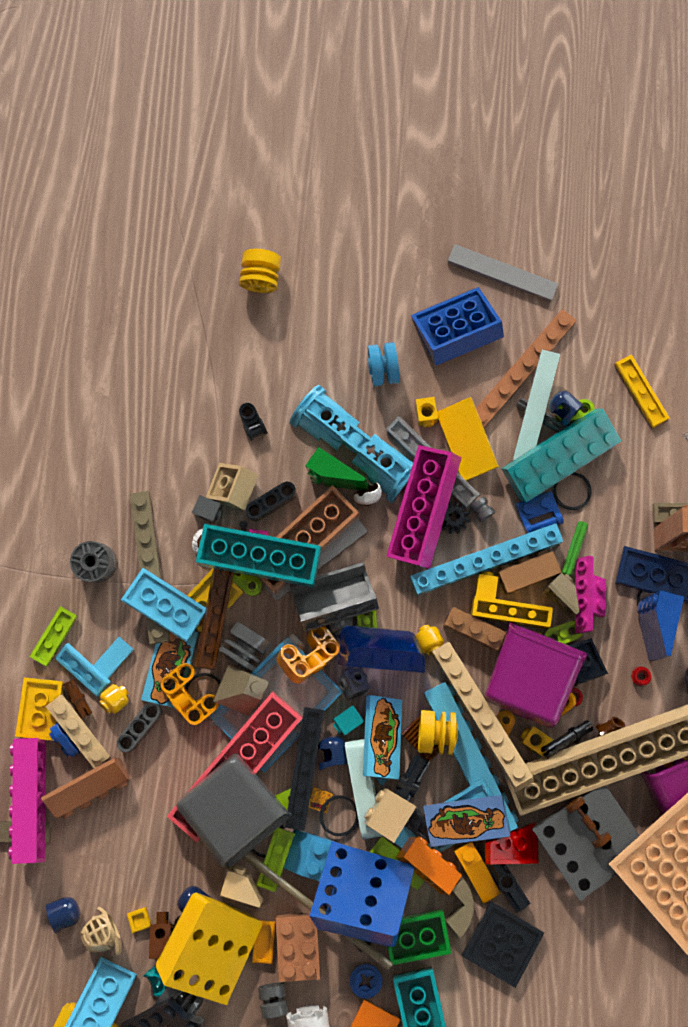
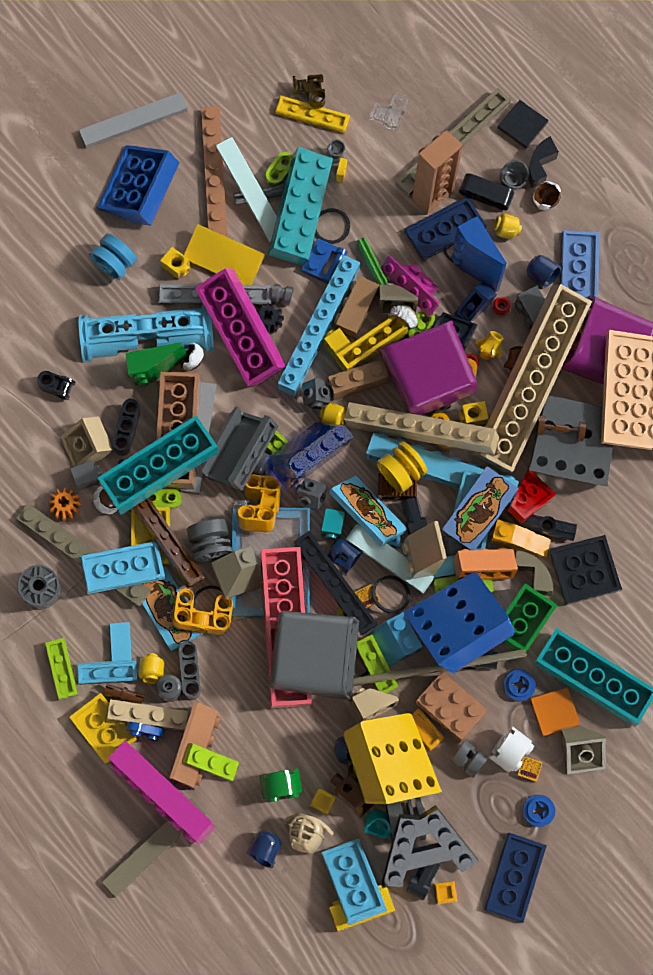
camera: 50 degrees left, 5 degrees down
(85, 812) = (210, 762): none -> lime plate
(118, 726) = (174, 692): none -> dark grey head
(118, 879) = (281, 784): none -> green brick
(168, 523) = (72, 506): none -> orange gear
(432, 610) = (316, 393): none -> dark grey brick
(558, 615) = (406, 314): none -> white hair
(570, 406) = (274, 167): dark blue helmet -> none
(573, 735) = (495, 386): black pin -> none
(601, 700) = (490, 345): none -> yellow rock
(621, 455) = (341, 170): none -> yellow tile
(623, 655) = (475, 302): none -> dark blue slope
(634, 434) = (338, 147): none -> flat silver wheel
(661, 369) = (312, 88): none -> dark brown piece
(664, 699) = (530, 304): none -> dark grey brick

